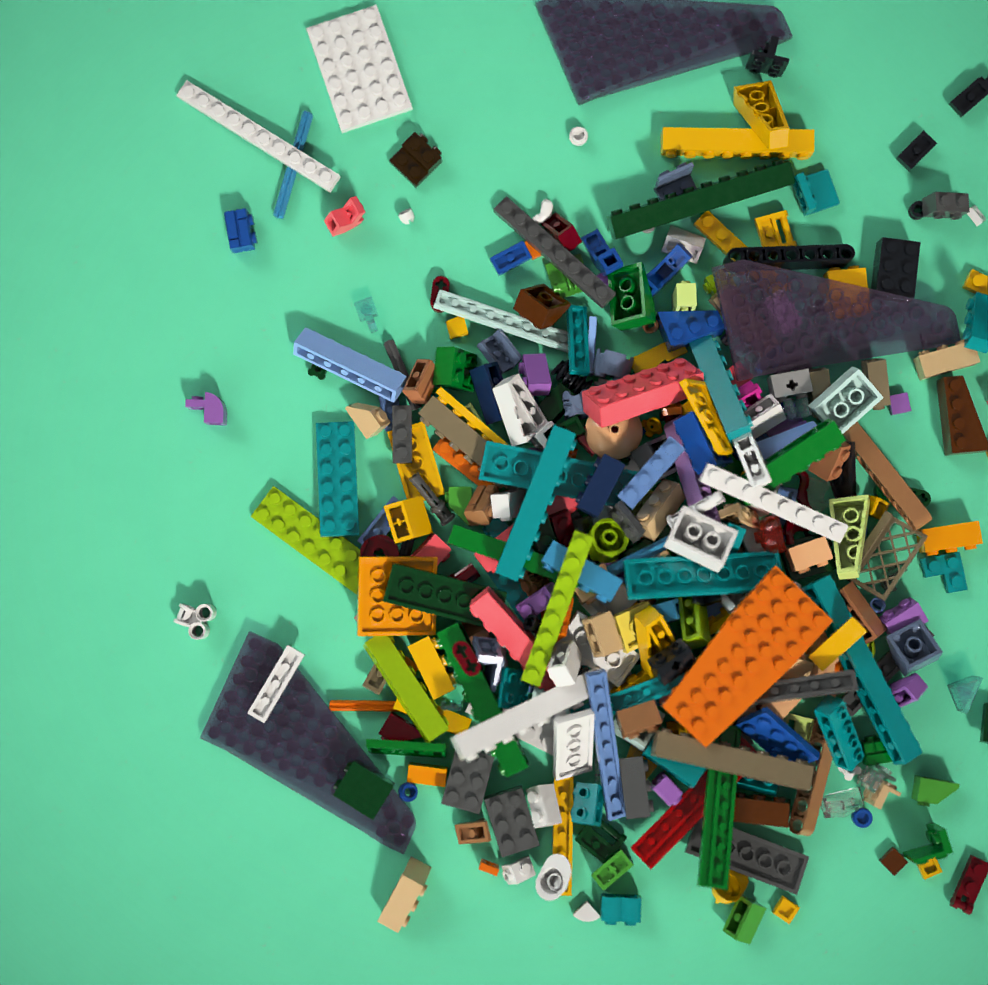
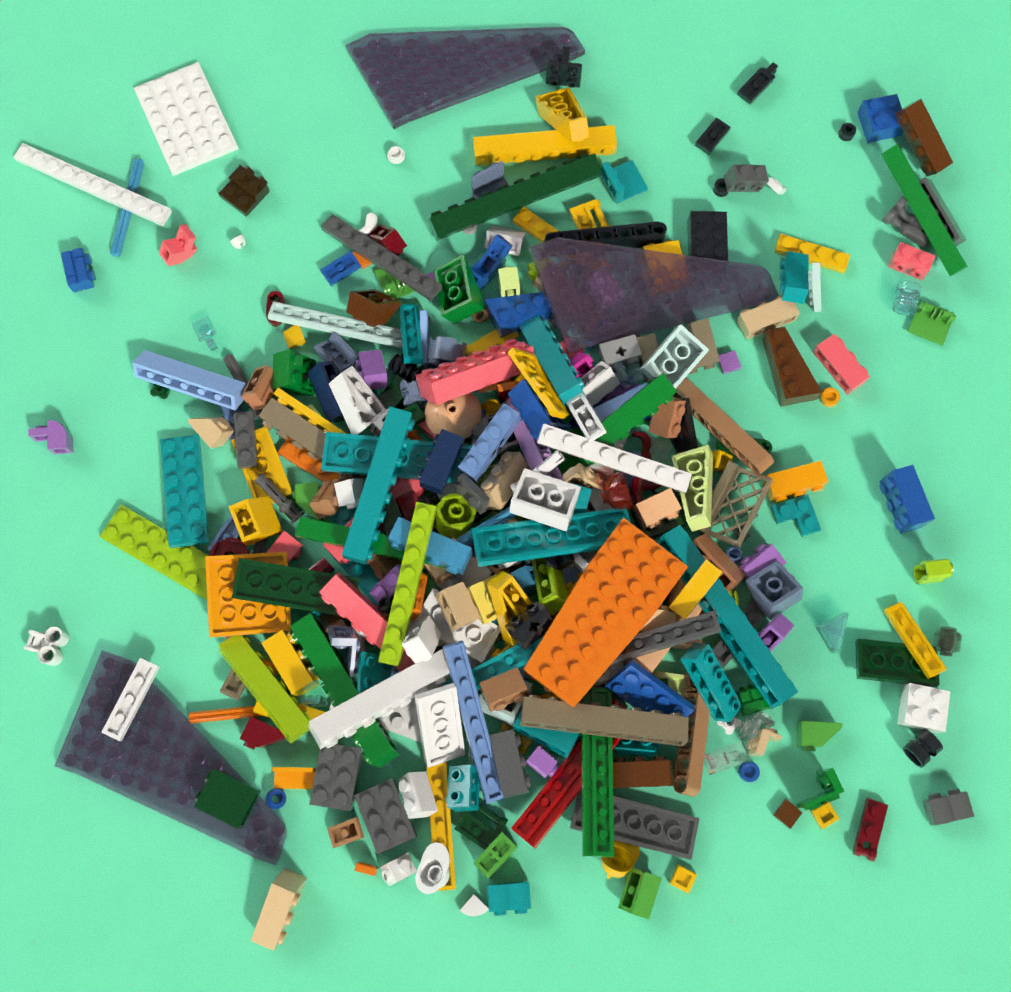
camera: 10 degrees left, 10 degrees down
(406, 748) = (269, 750): green tile -> none
(470, 655) = (317, 649): dark red beam -> none
(603, 257) = (427, 255): blue arch -> none

